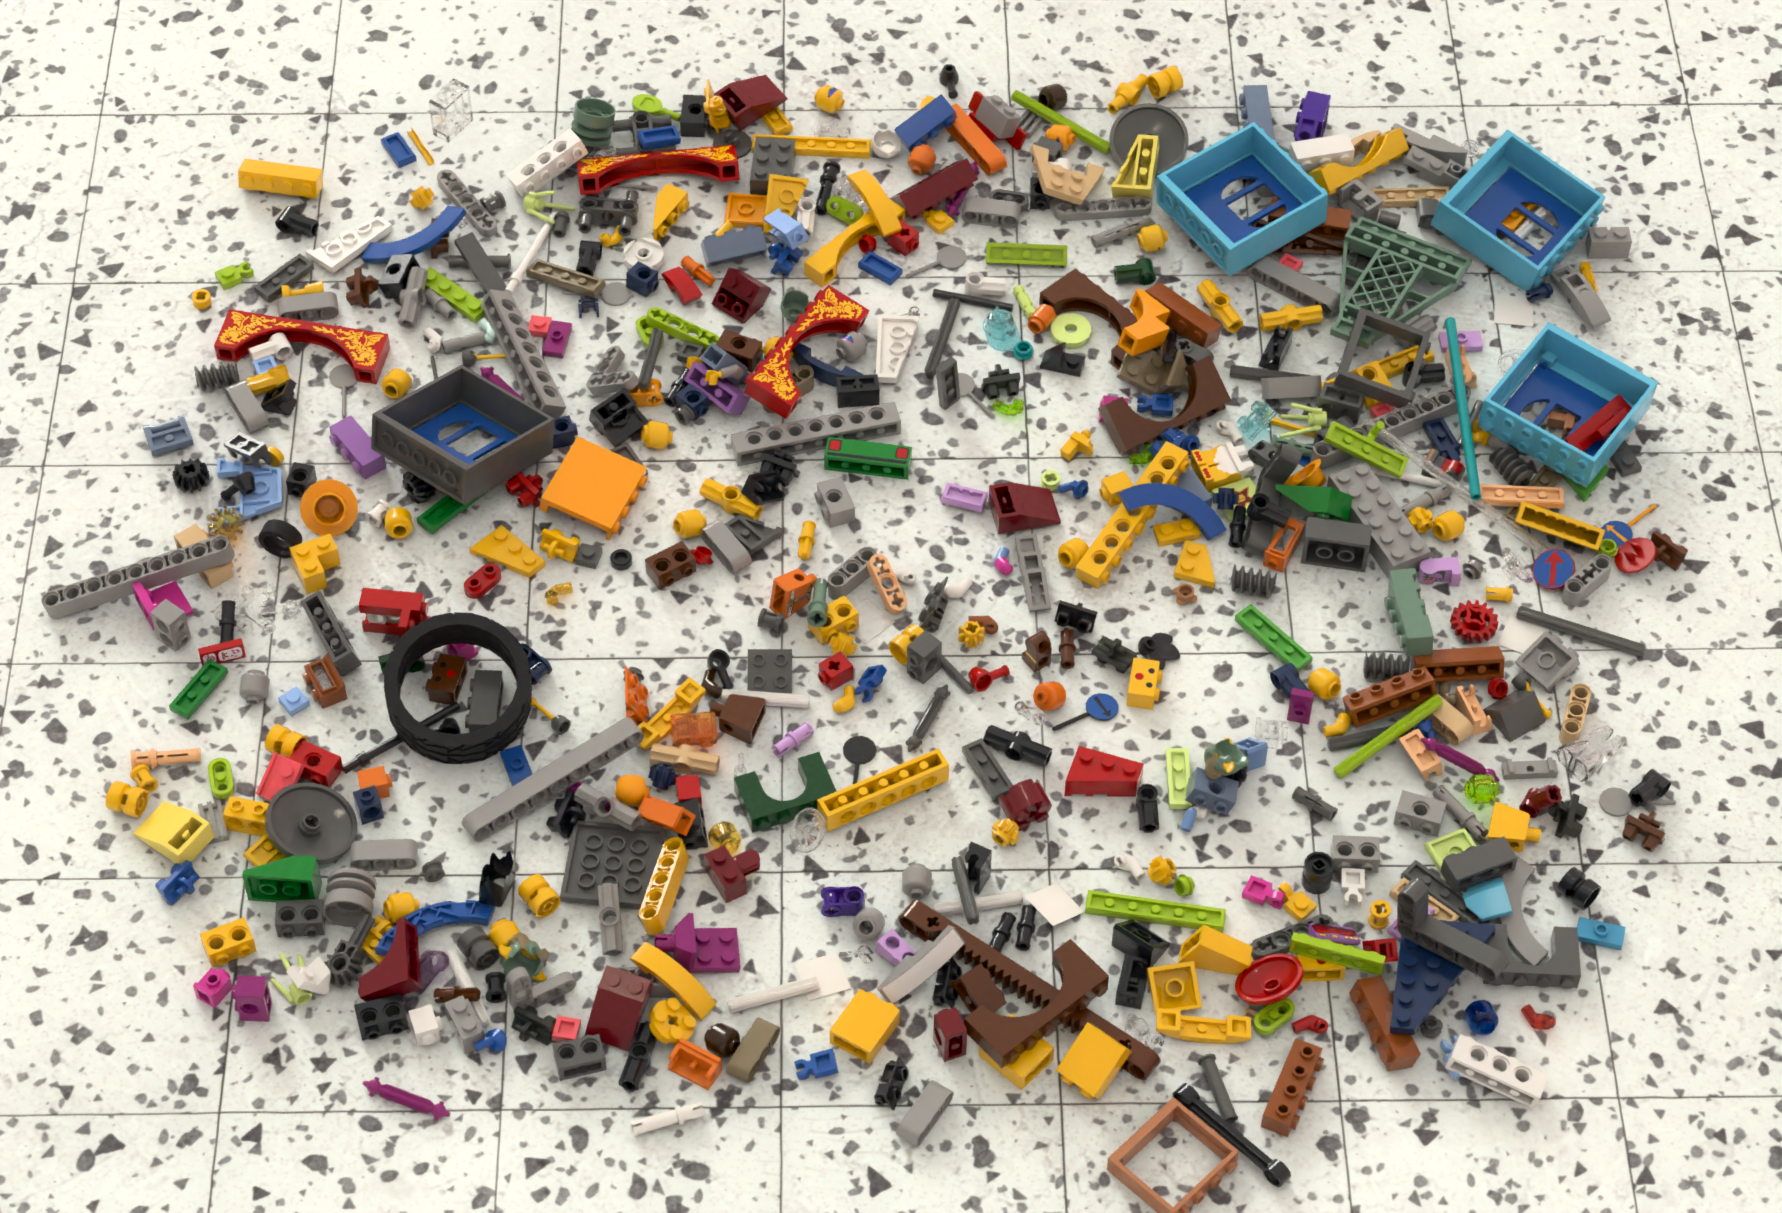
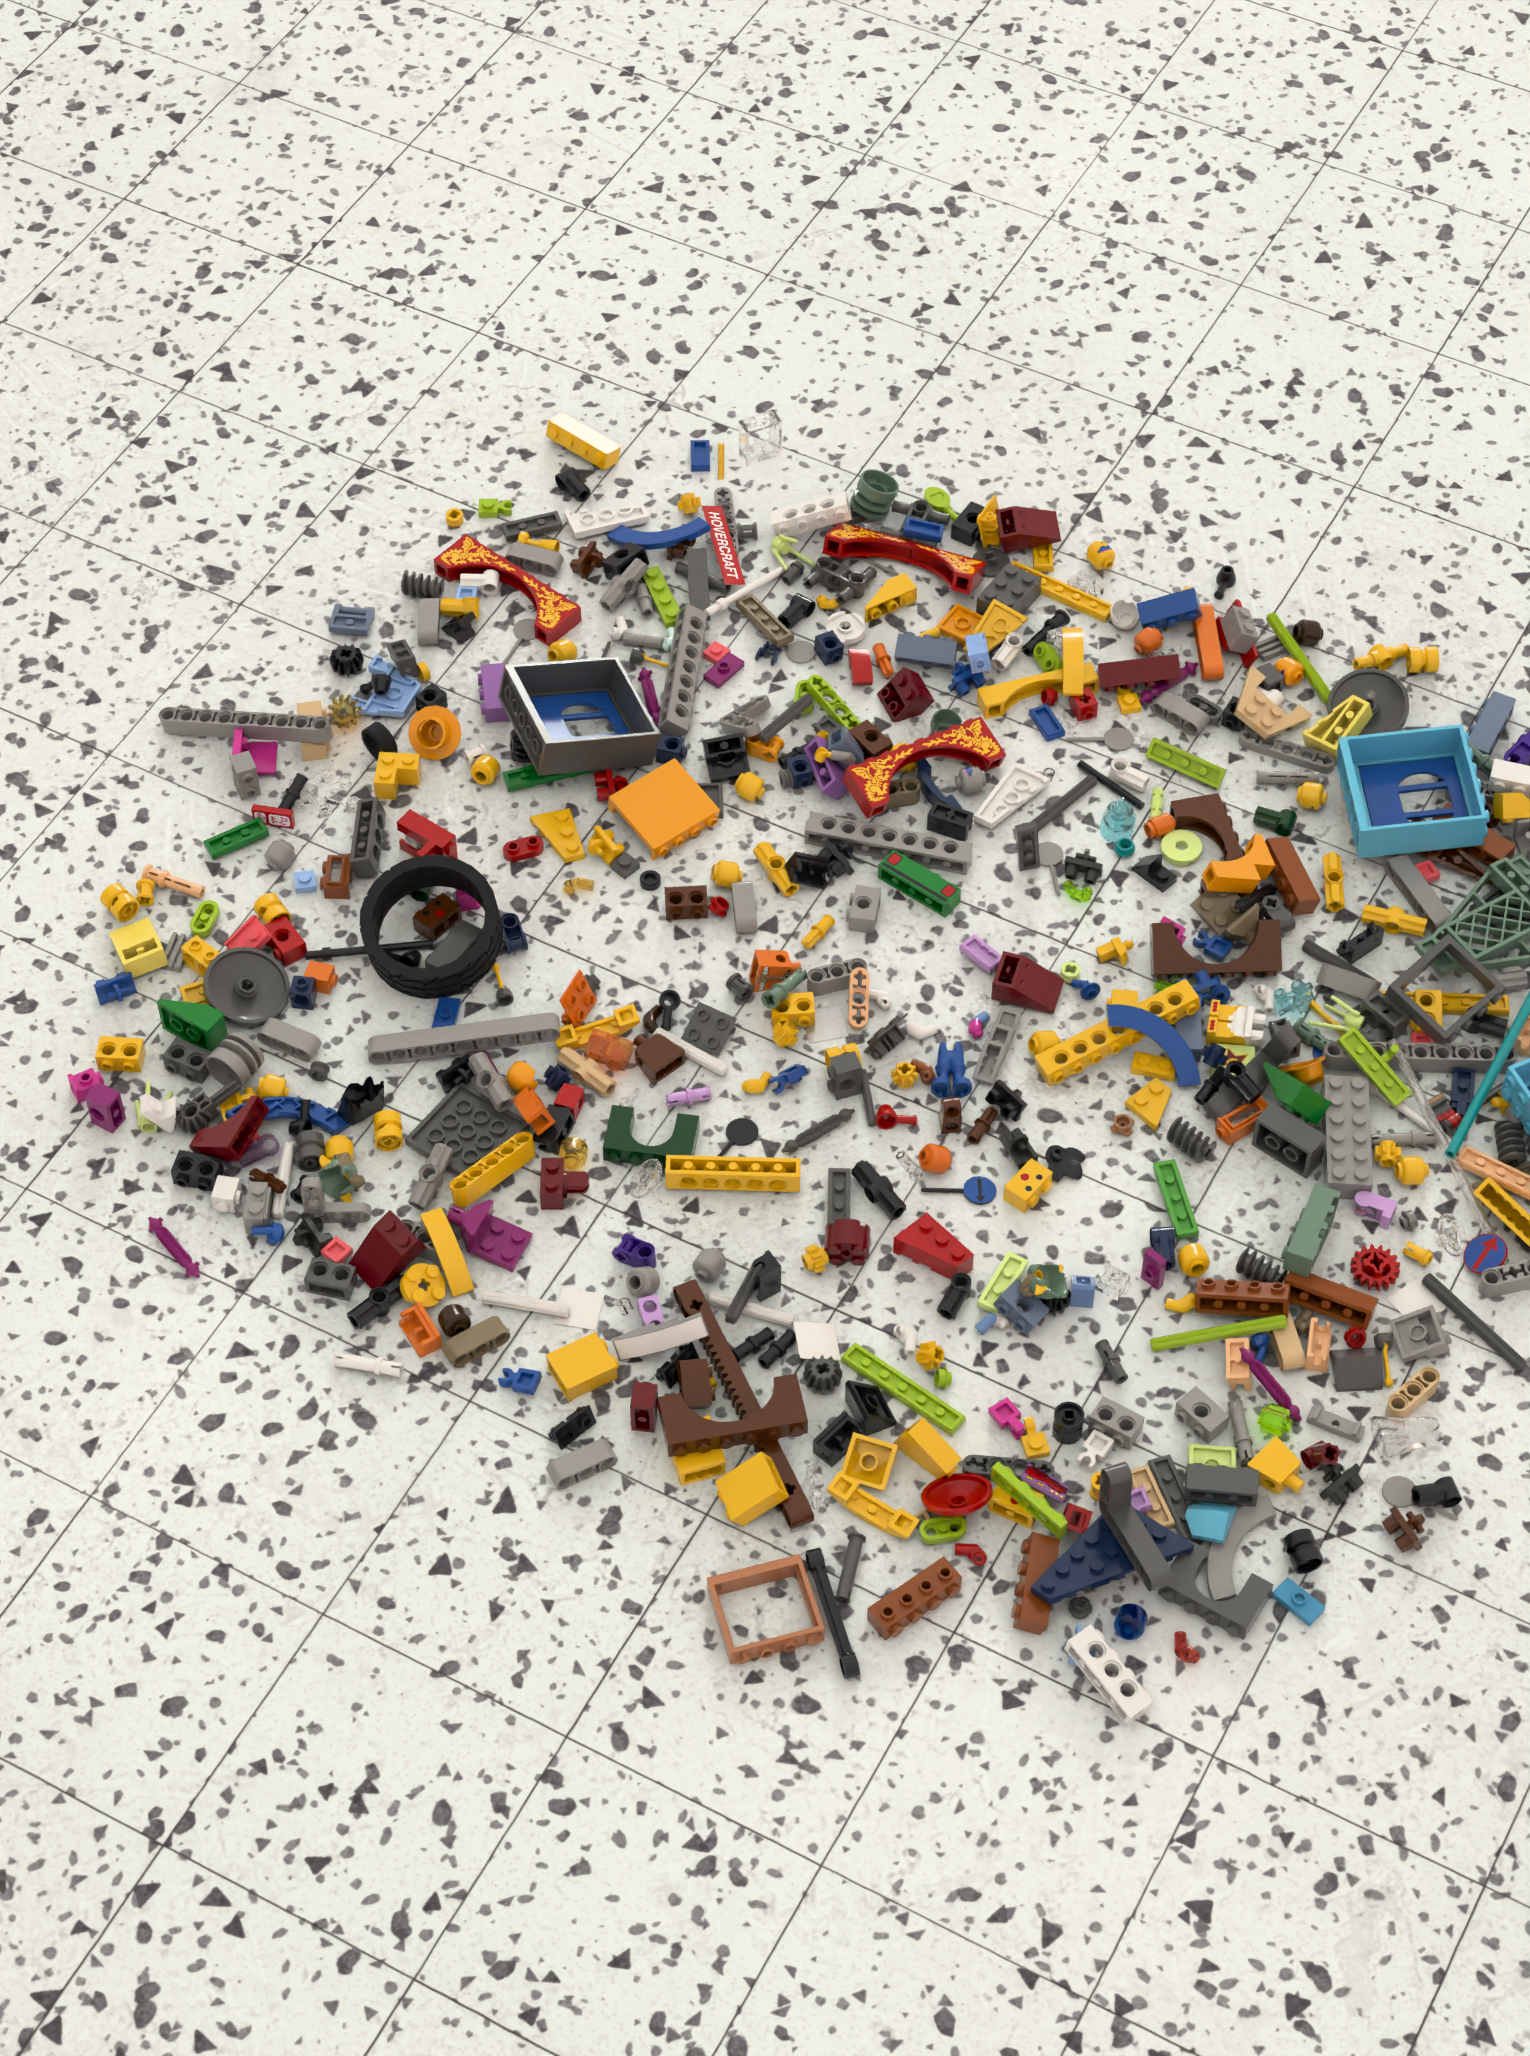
camera: 30 degrees right, 0 degrees up
(453, 930) = (304, 1122): none -> black bar
(483, 224) = (723, 545): none -> sticker
(752, 533) = (774, 905): dark grey wing -> none
(835, 671) = (764, 1054): red brick -> none
(1005, 605) = (950, 1063): none -> blue piece
(1081, 930) = (822, 1374): none -> dark grey gear
(1357, 739) = (1190, 1322): dark grey axle -> none

